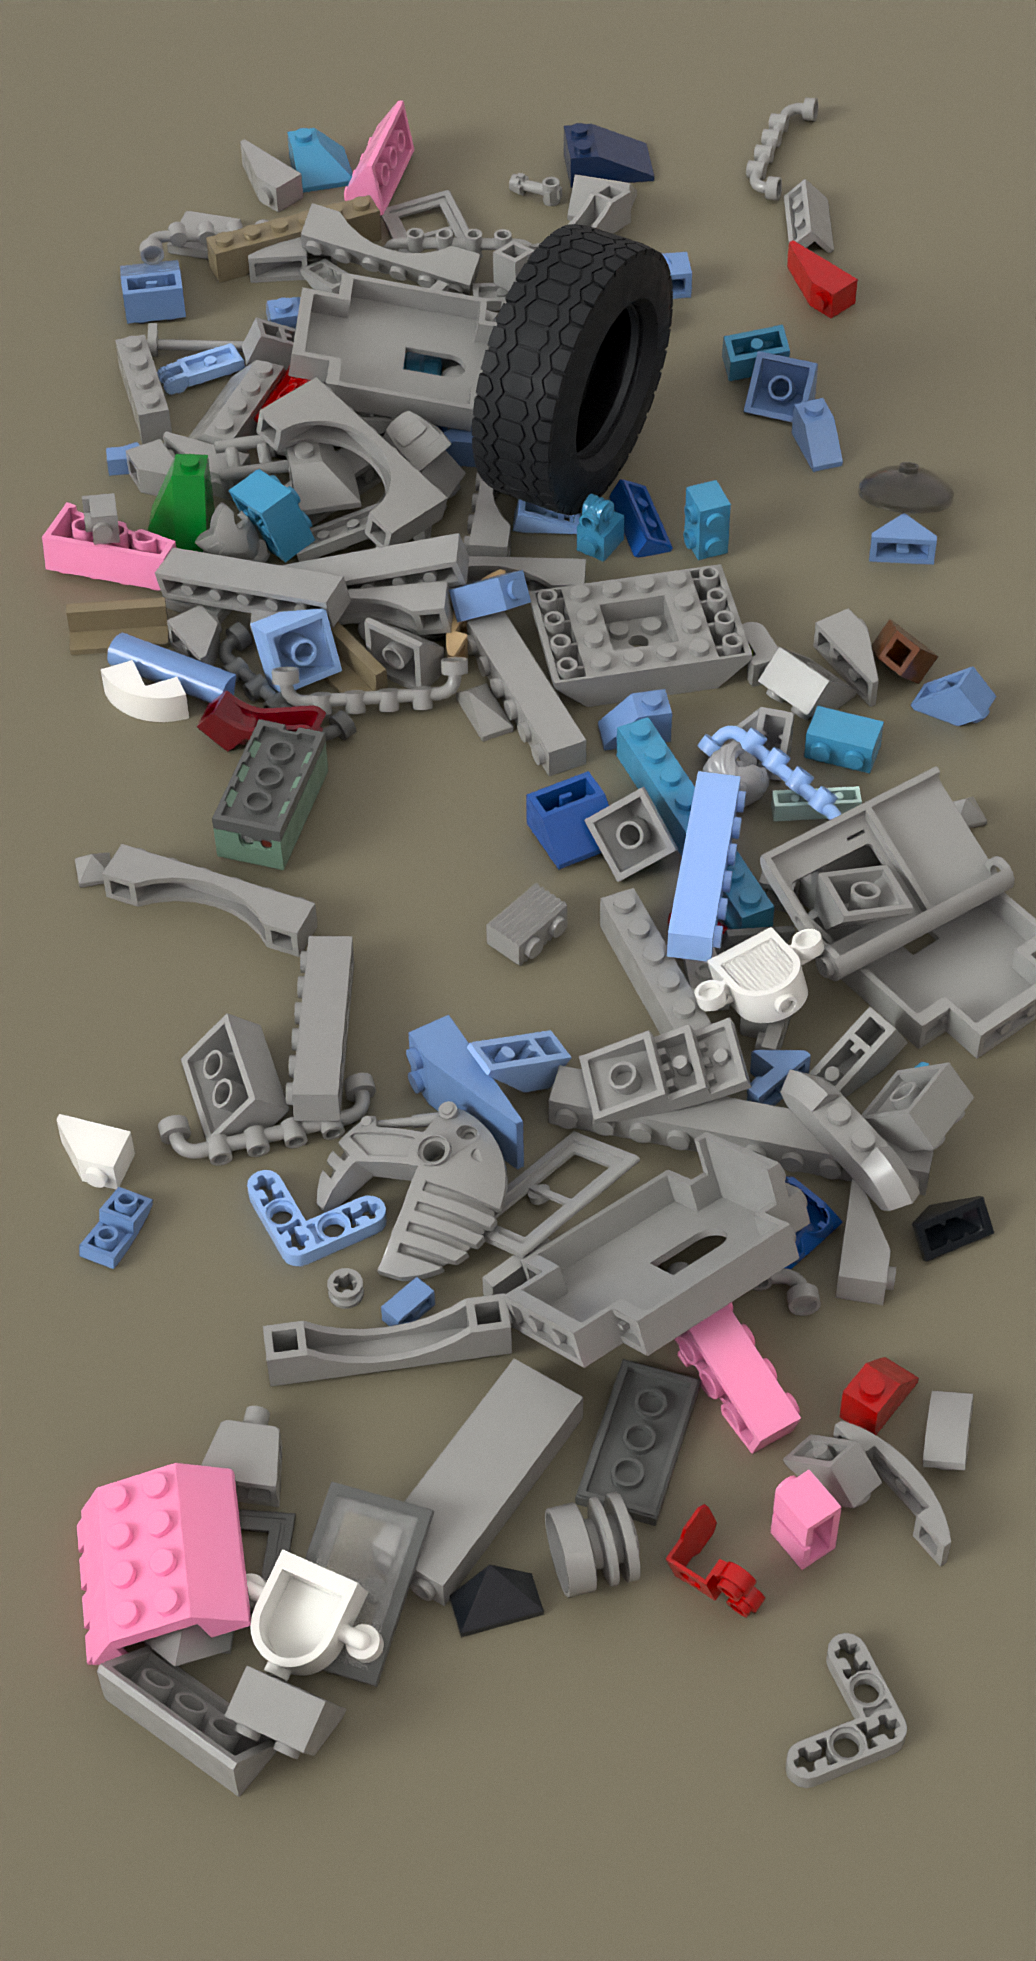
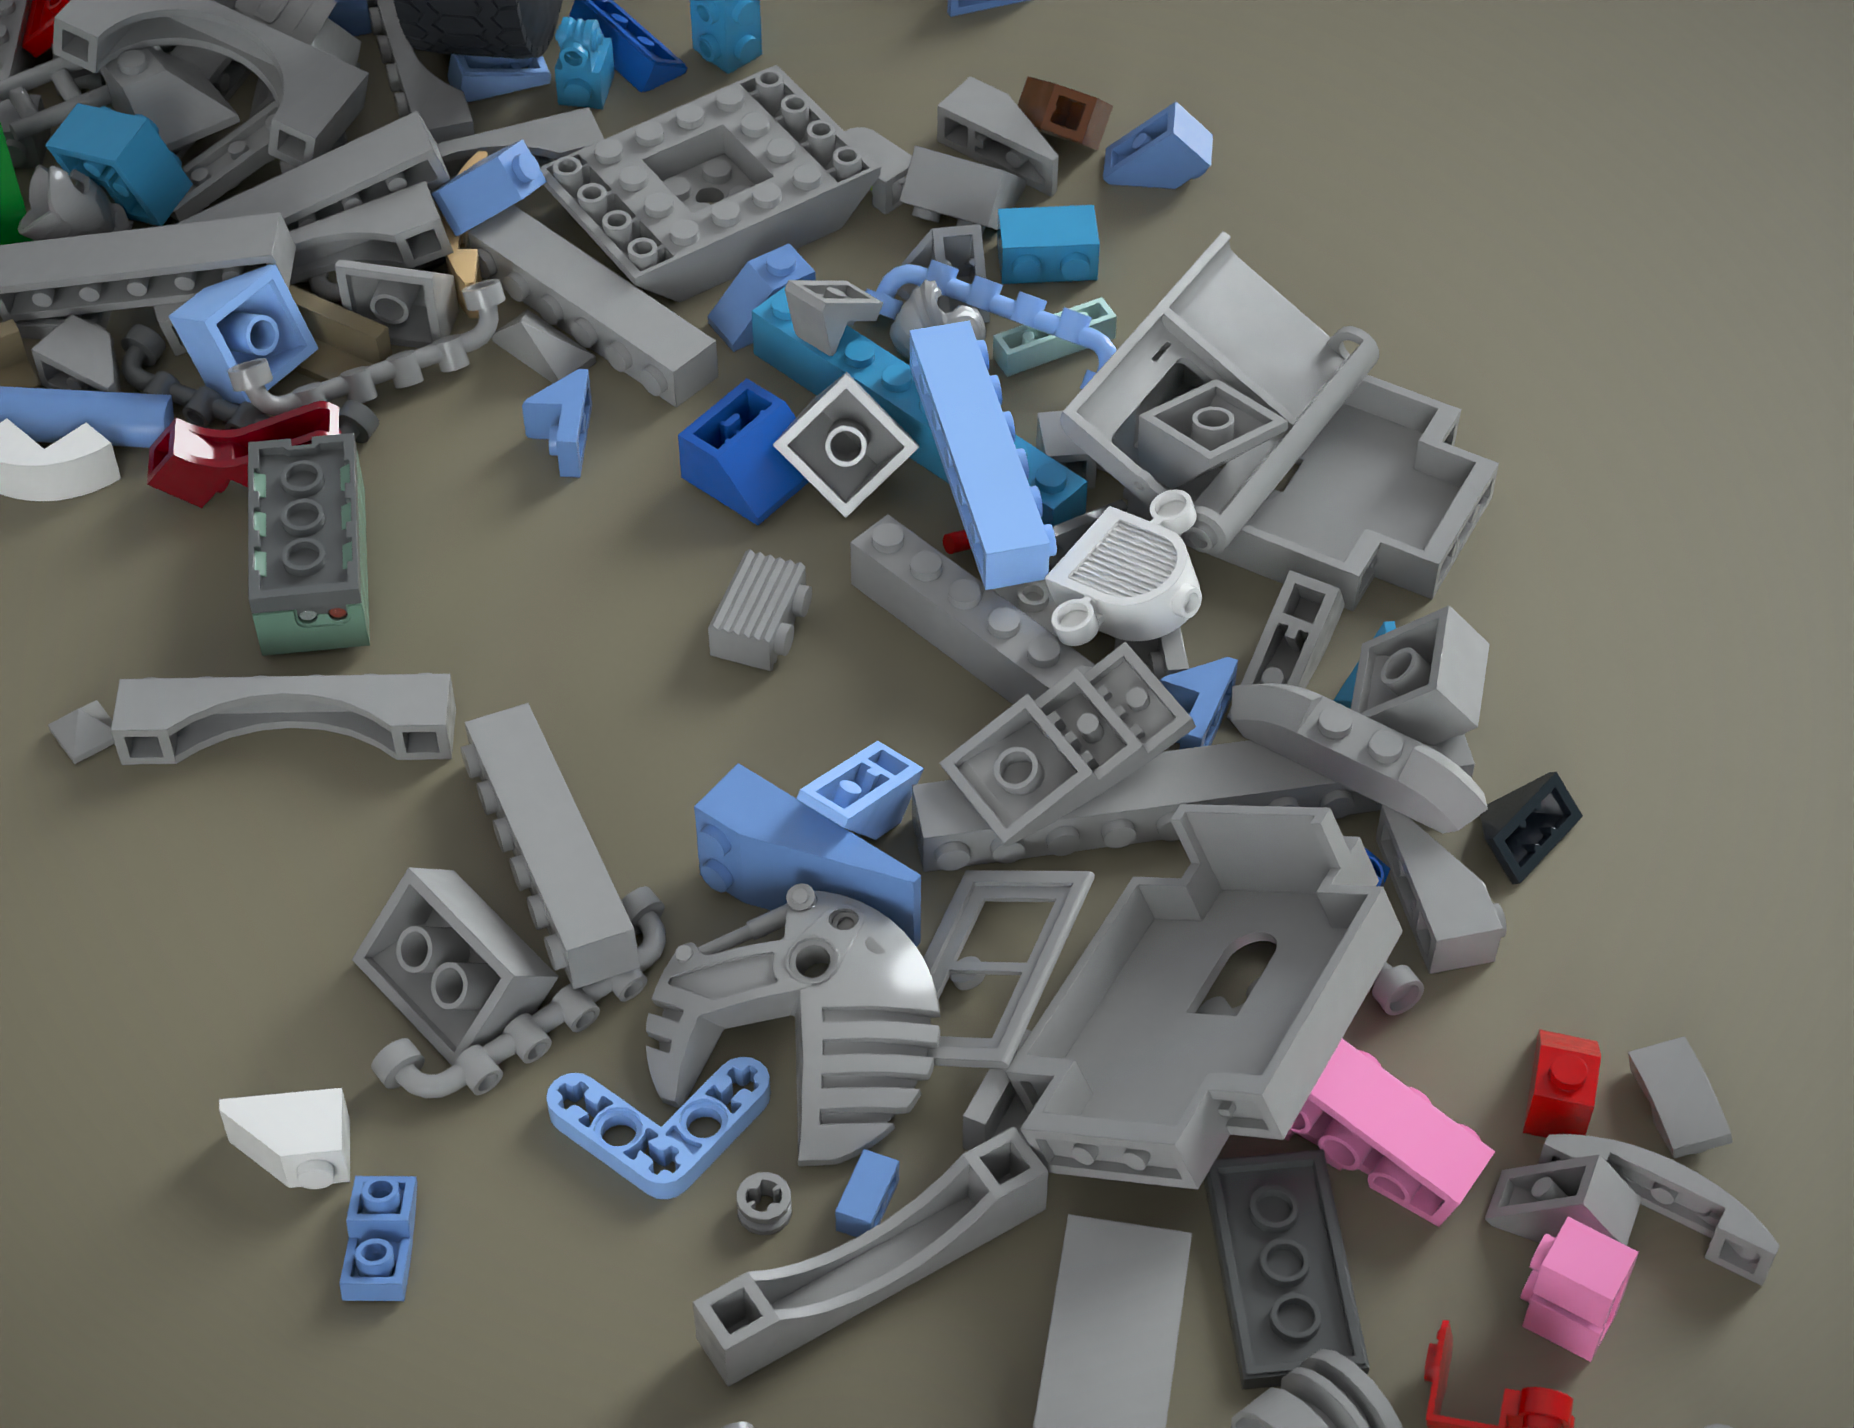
camera: 25 degrees left, 0 degrees up
(469, 763) = (563, 417): none -> medium blue slope
(657, 738) = (824, 309): none -> light grey slope

